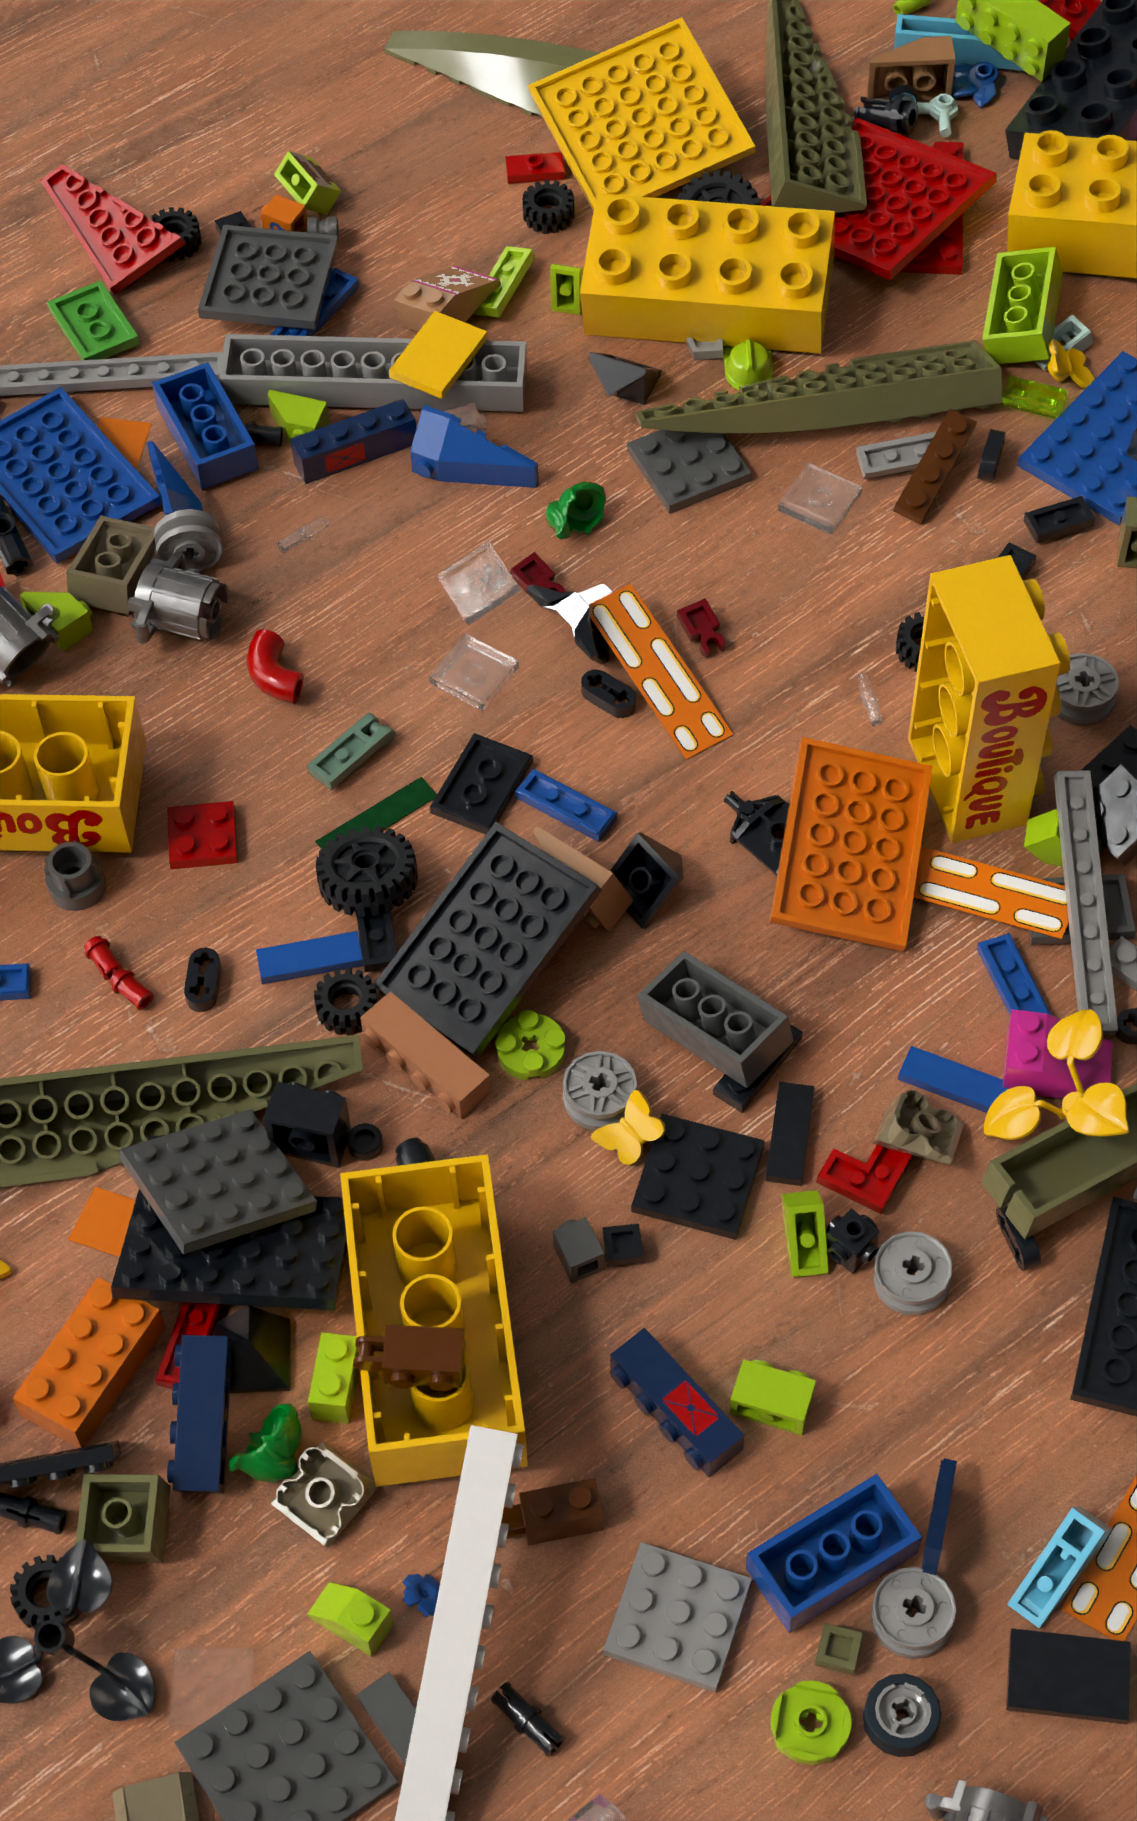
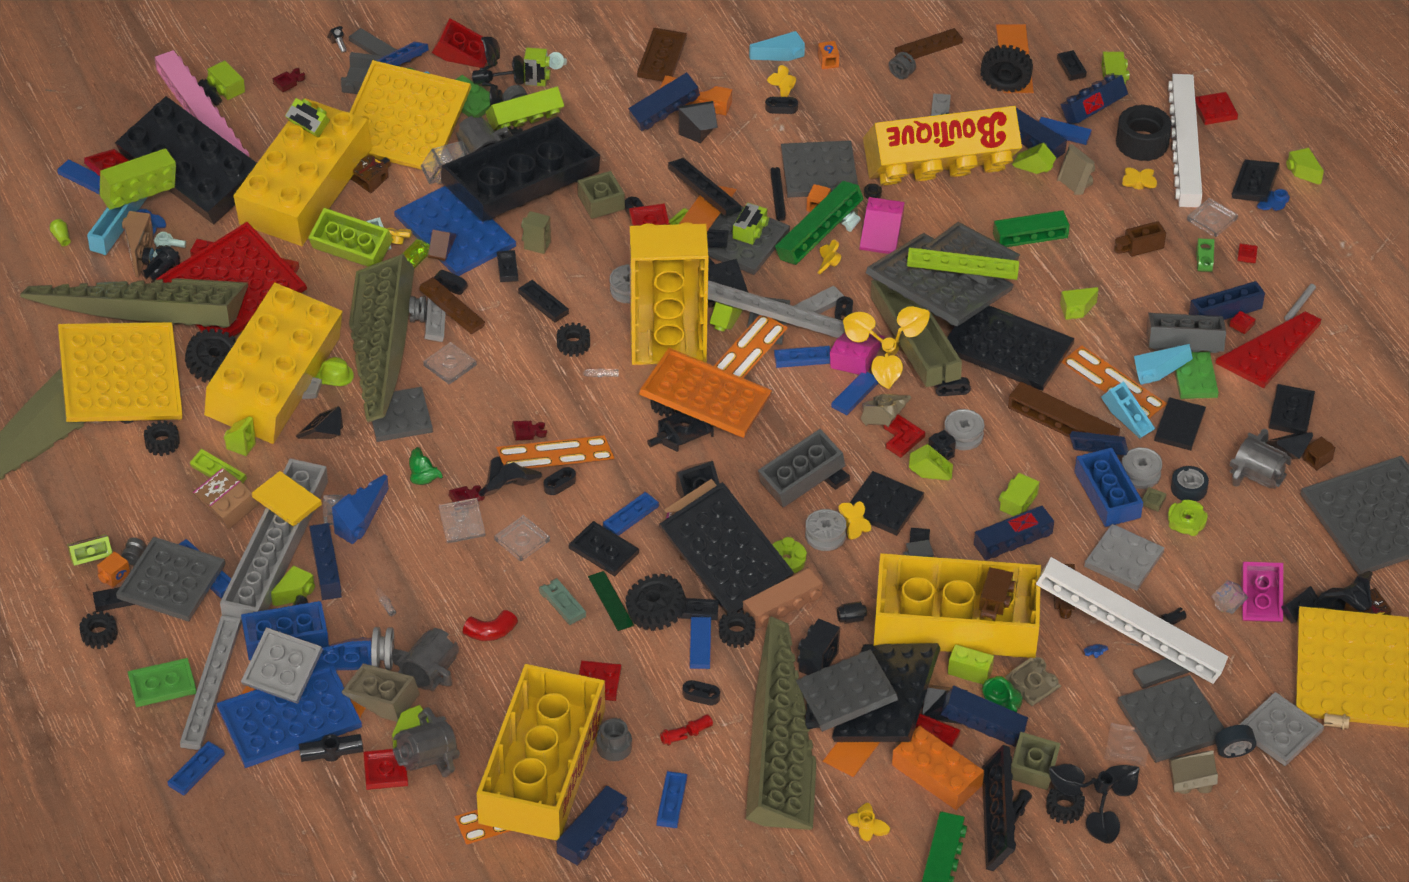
camera: 80 degrees left, 10 degrees down
(110, 231) = (84, 660): wing -> none
(121, 430) = (281, 665): none -> light grey plate
(352, 1616) = (1102, 678): lime slope -> none
(534, 167) = (120, 440): red plate -> none
(790, 1133) = (870, 461): black tile -> none
(909, 420) = (417, 308): none -> dark grey wheel
(999, 1448) = (1056, 413): none -> reddish brown brick
(1063, 417) = (441, 244): none -> reddish brown slope

